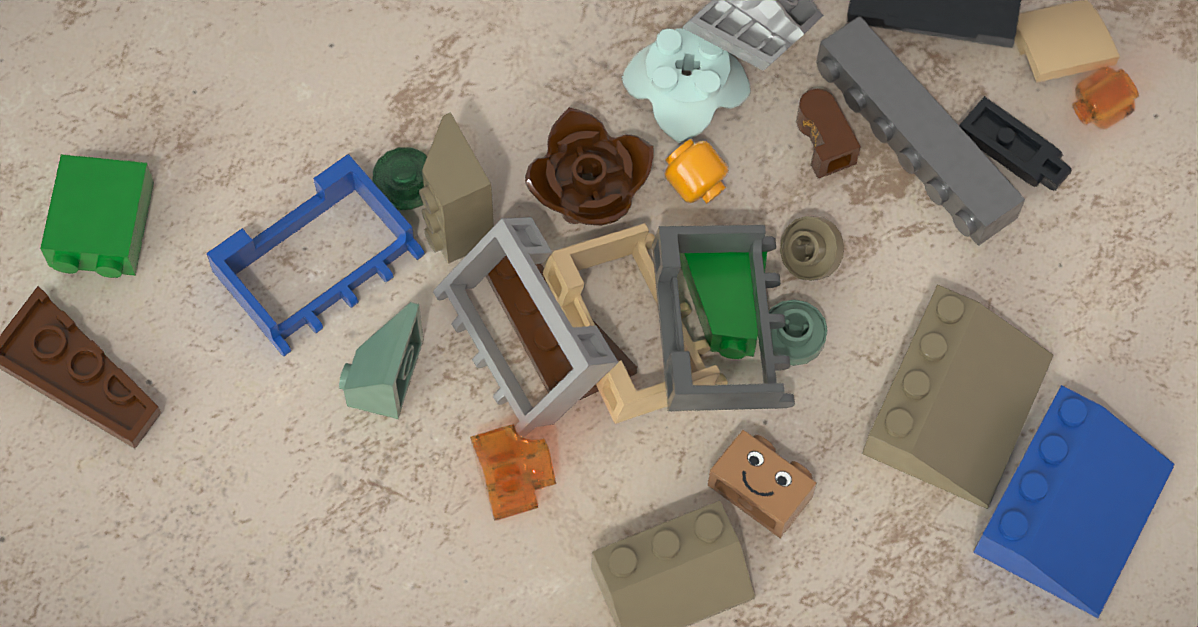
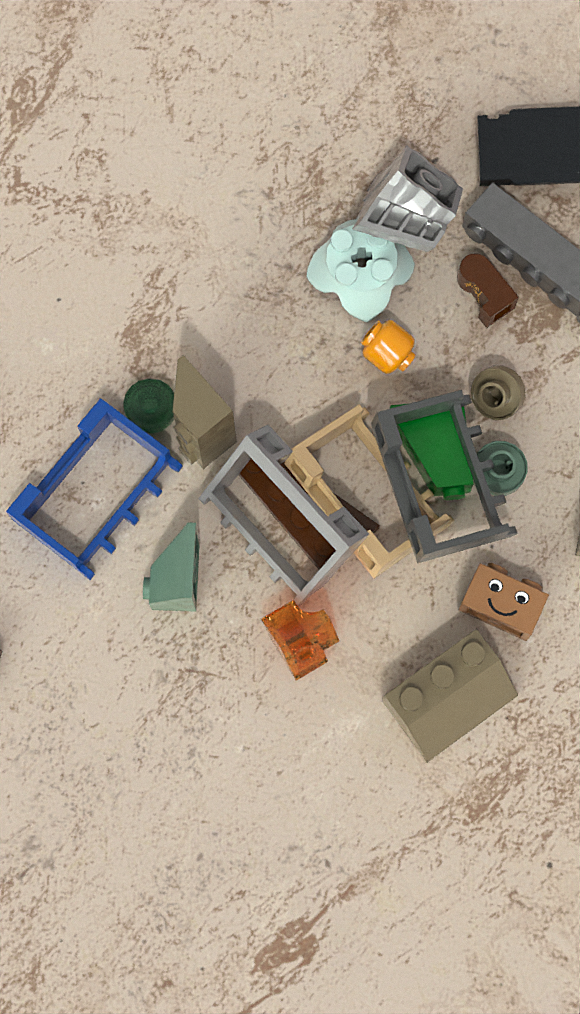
camera: 10 degrees left, 10 degrees up
(582, 146) = (291, 345): reddish brown brick -> none

